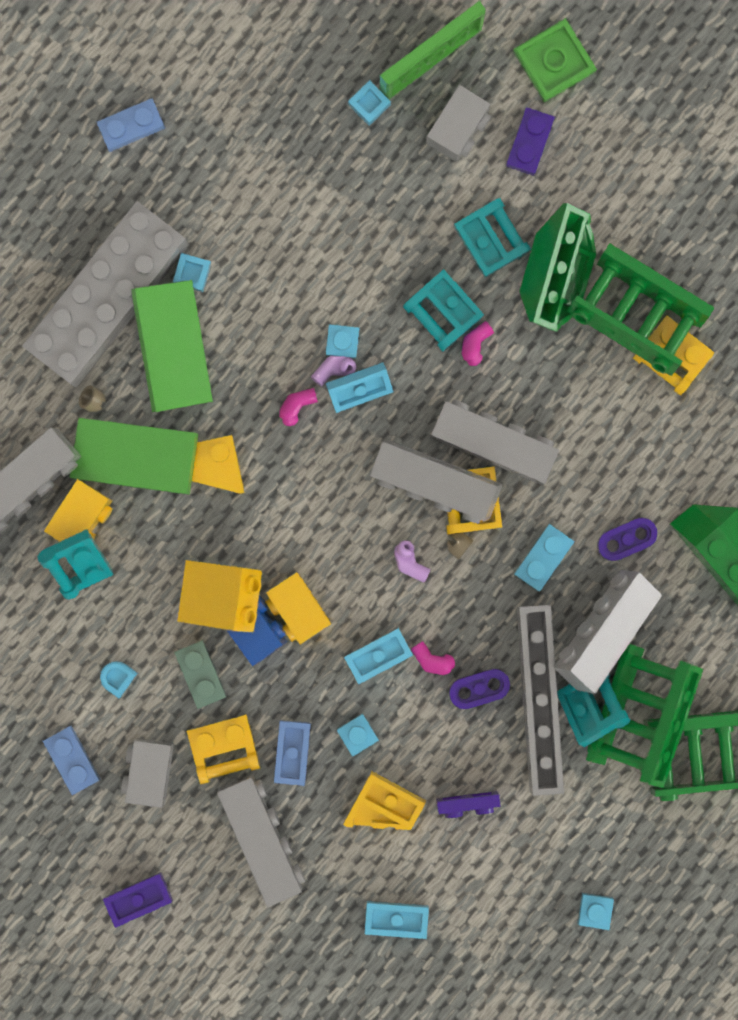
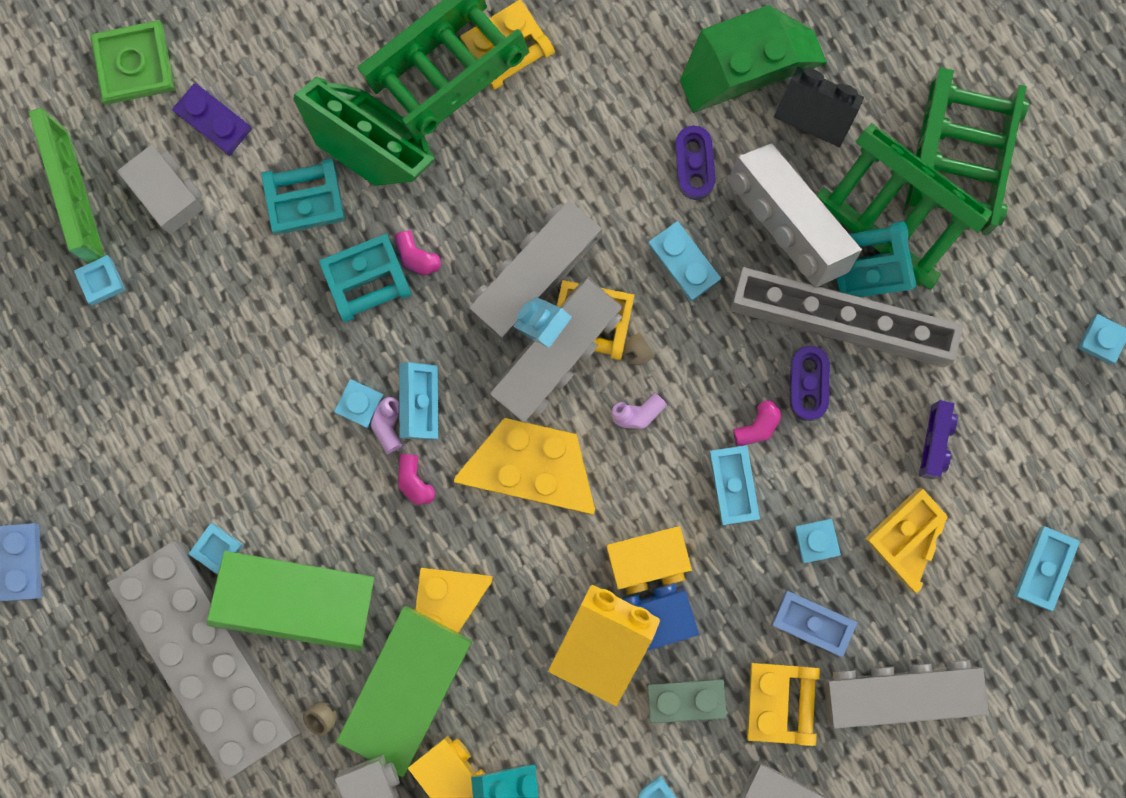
camera: 65 degrees left, 5 degrees down
(340, 493) = (531, 465): none -> yellow wing
(451, 462) = (541, 321): none -> medium azure plate
(706, 623) = (819, 106): none -> black brick

